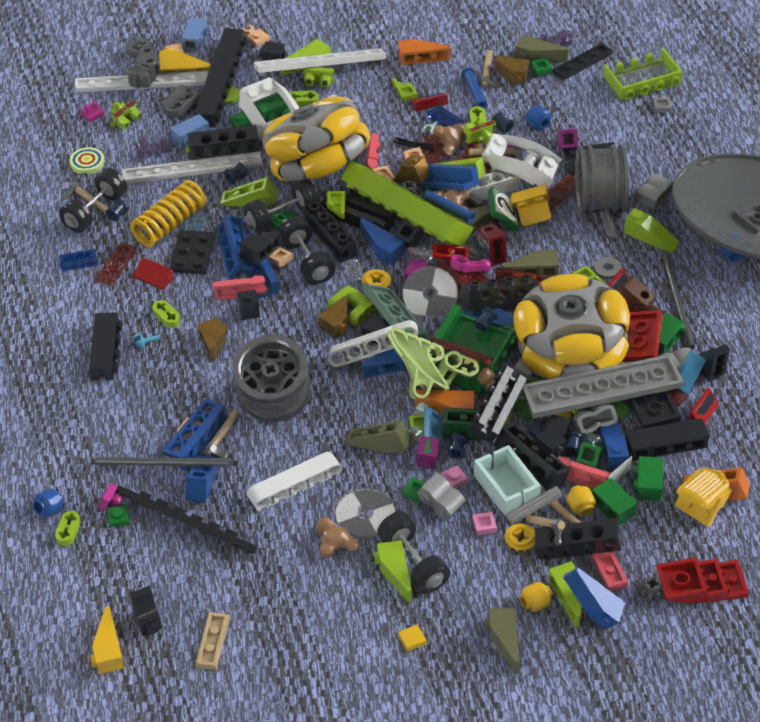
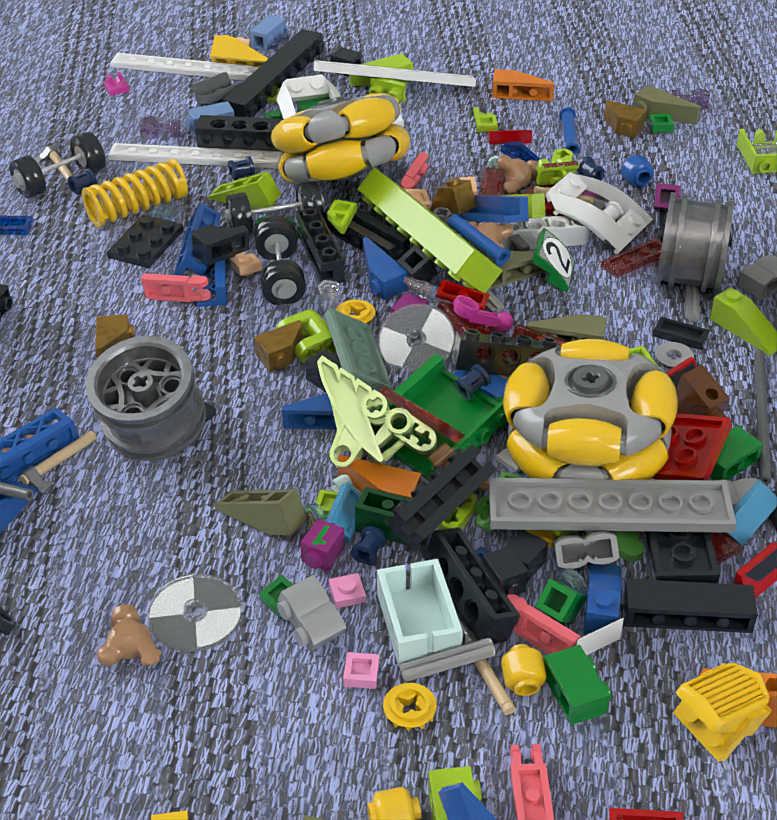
camera: 15 degrees right, 5 degrees down
(87, 160) = (79, 125): yellowish green tile -> none
(116, 264) = (48, 237): clear red tile -> none
(121, 112) = (146, 89): lime hips -> none
(140, 341) = (22, 327): medium azure hand -> none
(146, 63) = (192, 51): dark grey animal -> none
(153, 273) = (84, 255): red slope -> none
(163, 315) = (69, 302): lime beam -> none
(248, 304) = (176, 308): black brick -> none
(256, 37) = (334, 43): light nougat plate -> none
(293, 480) = (115, 541): white beam -> none
(362, 343) = (294, 384): white beam -> none
(393, 566) = (196, 698): lime slope -> none
(405, 142) = (465, 173): black piece -> none
(428, 573) = (241, 727): black axle -> none
(485, 81) = (586, 126): tan piece -> none
(491, 239) = (523, 289): dark red torso -> none
(532, 205) = (593, 261): yellow piece -> none
(557, 525) = (460, 698): piece -> none
(573, 444) = (542, 573): dark blue bush -> none
(579, 539) = (494, 731): black brick -> none
(582, 61) = (714, 126): black tile -> none
(607, 248) = (681, 333): none -> black tile
(649, 478) = (643, 659): green brick -> none

